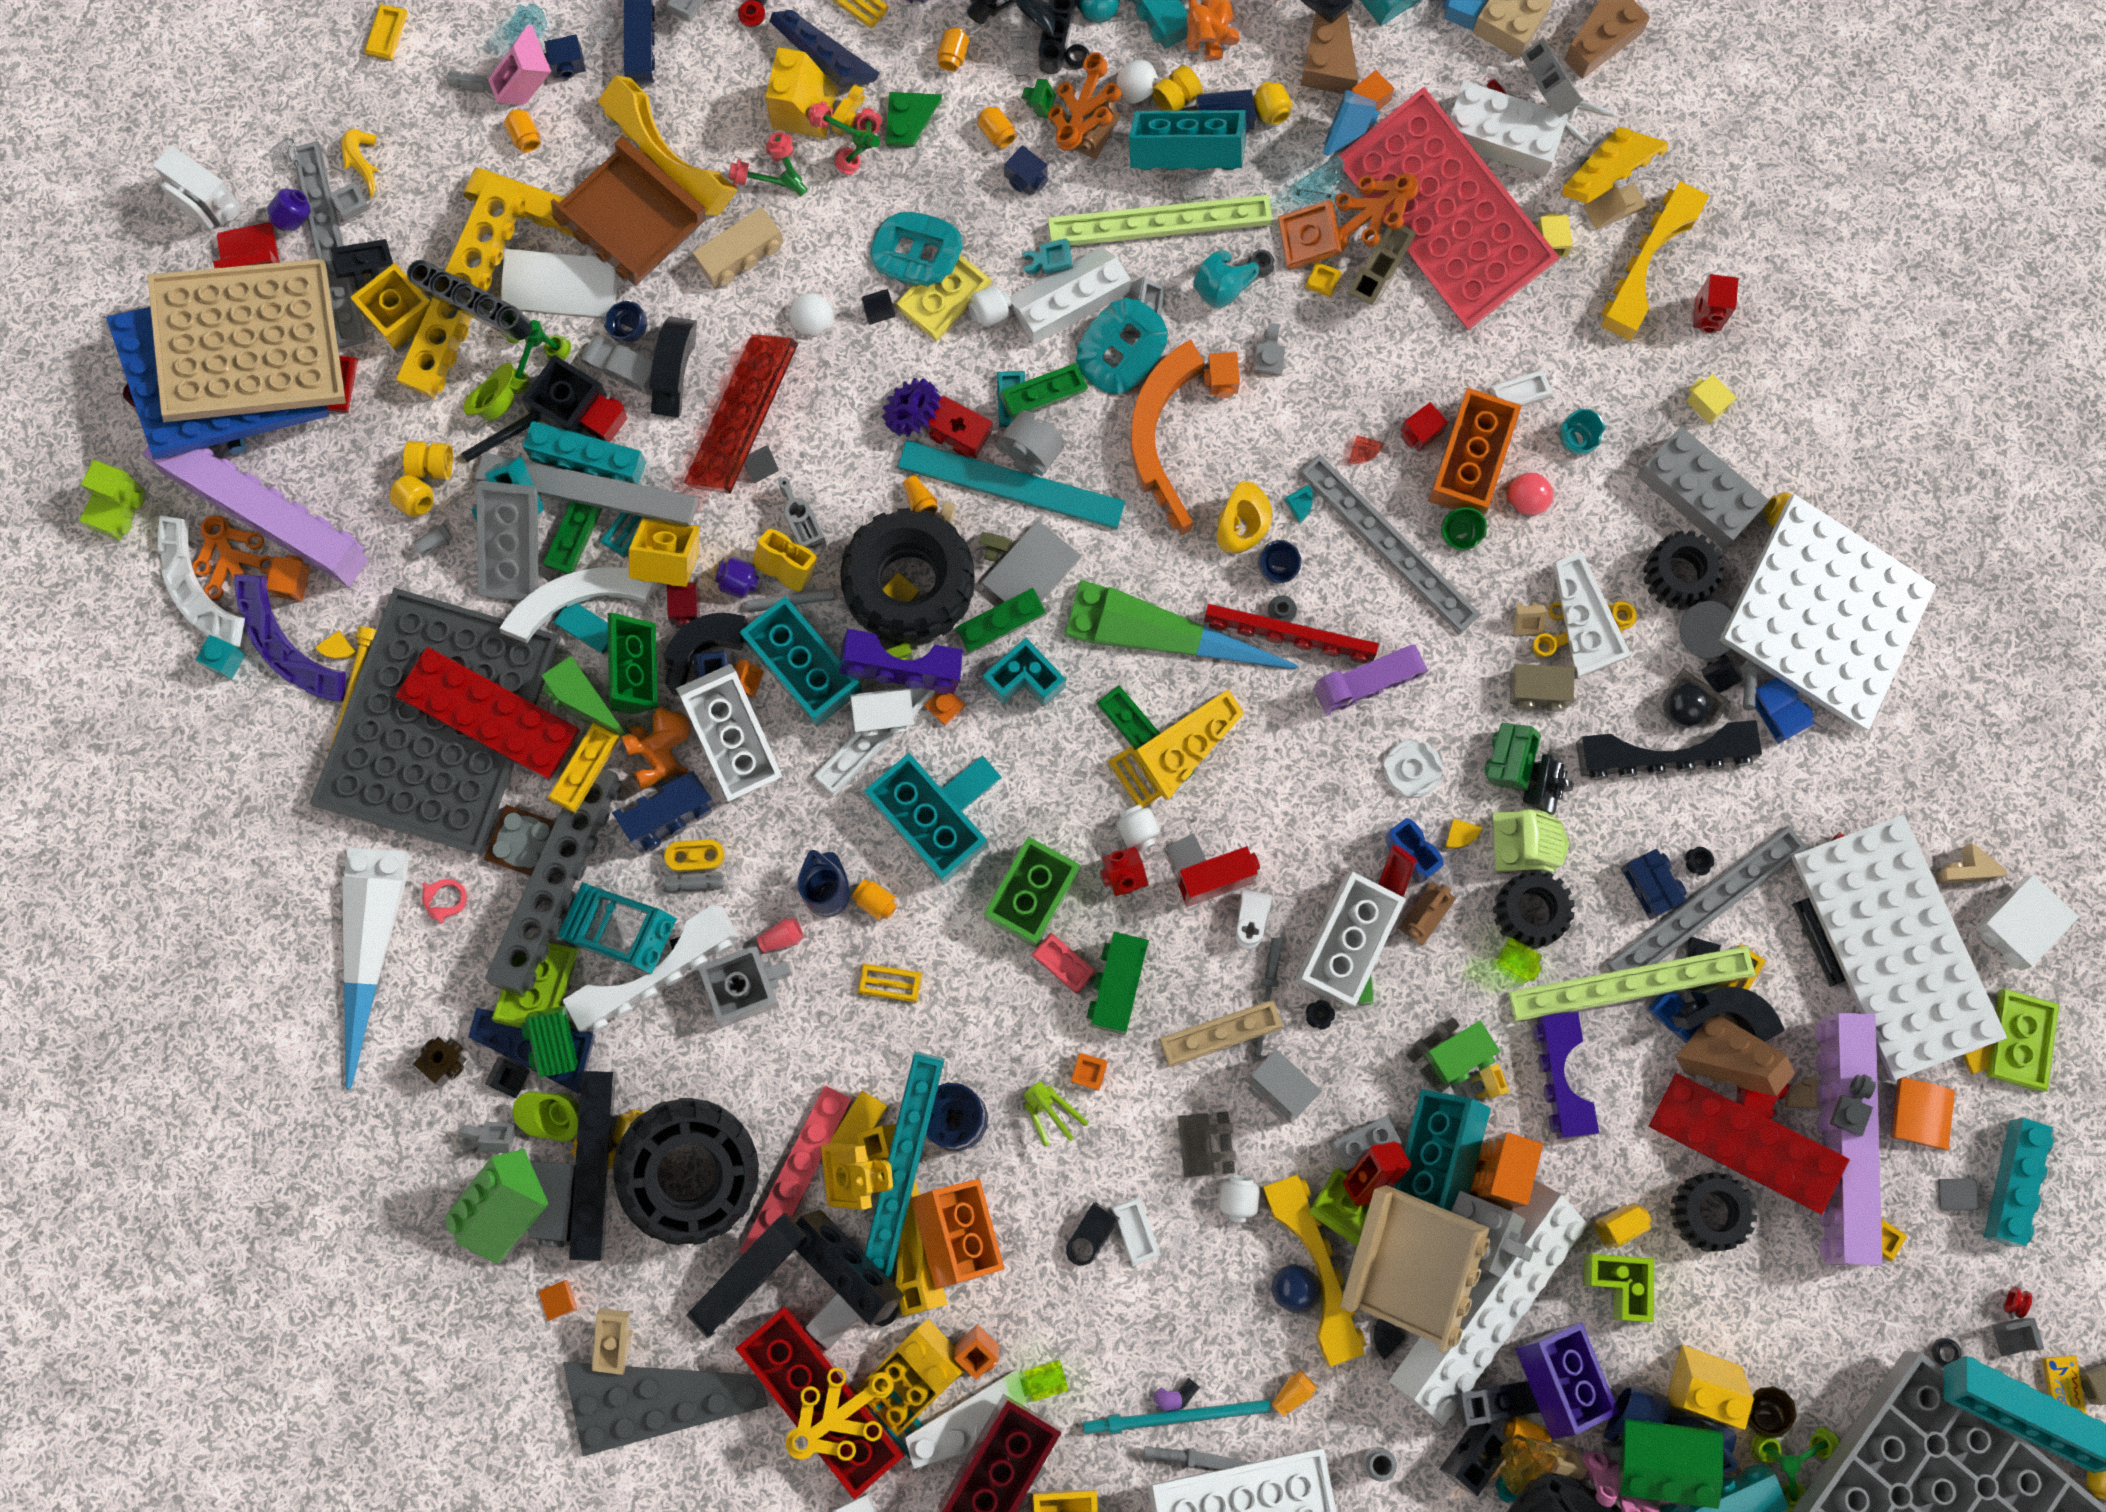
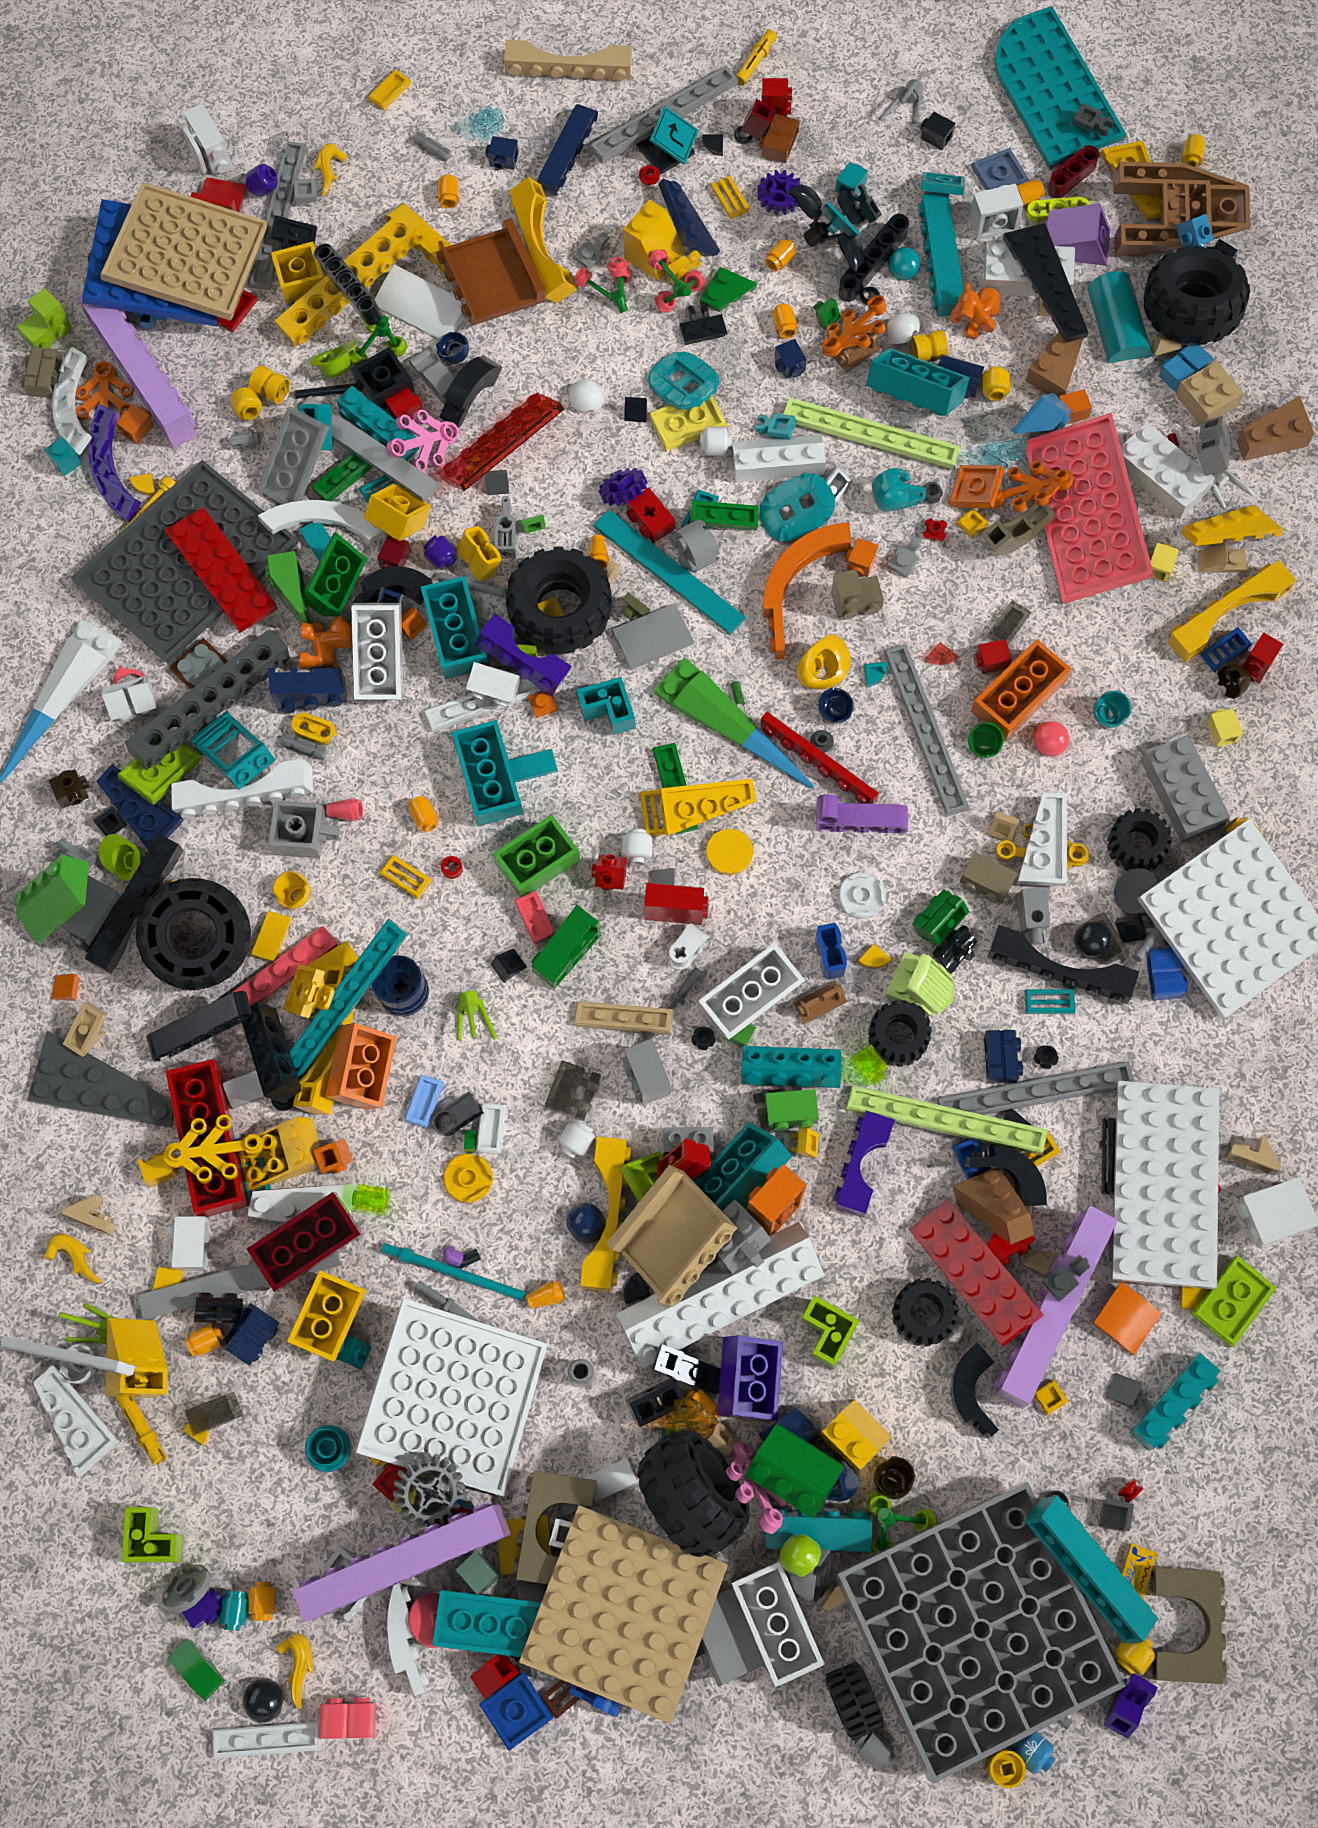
camera: 30 degrees right, 5 degrees down
(138, 563) = (41, 372): none -> dark tan brick
(456, 918) = (129, 697): none -> white piece
(520, 70) = (465, 148): bright pink slope -> none
(550, 1041) = (147, 805): green brick -> none
(583, 768) = (266, 633): yellow tile -> none
(670, 431) = (425, 439): none -> bright pink plant
(731, 138) = (592, 254): none -> light grey plate
(738, 248) = (557, 329): tan brick -> none
(762, 1052) = (291, 882): none -> yellow hair
(770, 1126) = (271, 936): none -> yellow tile
(779, 1464) = (156, 1170): none -> yellow brick
(816, 872) = (396, 779): dark blue helmet -> none
(826, 494) = (533, 524): none -> bright green slope
(905, 176) = (702, 329): none -> black hinge
(938, 938) = (456, 861): none -> red bush
(1001, 620) = (612, 661): green plate -> none
(1044, 1236) = (424, 1101): none -> light blue tile
(1059, 1032) = (508, 965): none -> black slope
(1089, 1071) = (514, 1001): orange plate -> none
(1120, 1256) = (470, 1141): none -> green tile
(1127, 1303) = (468, 1178): none -> yellow tile
(1159, 594) = (737, 692): none -> bright green piece
(1237, 421) = (855, 594): none -> dark tan brick
(1242, 785) = (729, 851): none -> yellow tile
(1286, 312) = (929, 533): none -> red plate
(1397, 870) = (810, 959): red tile -> none
(1420, 380) = (1009, 623): none -> clear smoke tile
(1435, 1003) = (762, 1066): none -> teal brick
(1524, 389) = (1084, 662): white tile -> none
(1605, 698) = (1027, 902): none -> light grey torso
(1622, 1225) = (849, 1287): yellow brick -> none
(1650, 807) = (1049, 992): none -> teal tile
(1679, 288) = (1241, 639): none -> blue slope
(1700, 337) = (1235, 674): none -> dark brown hair
(1789, 1267) = (962, 1390): none -> black arch

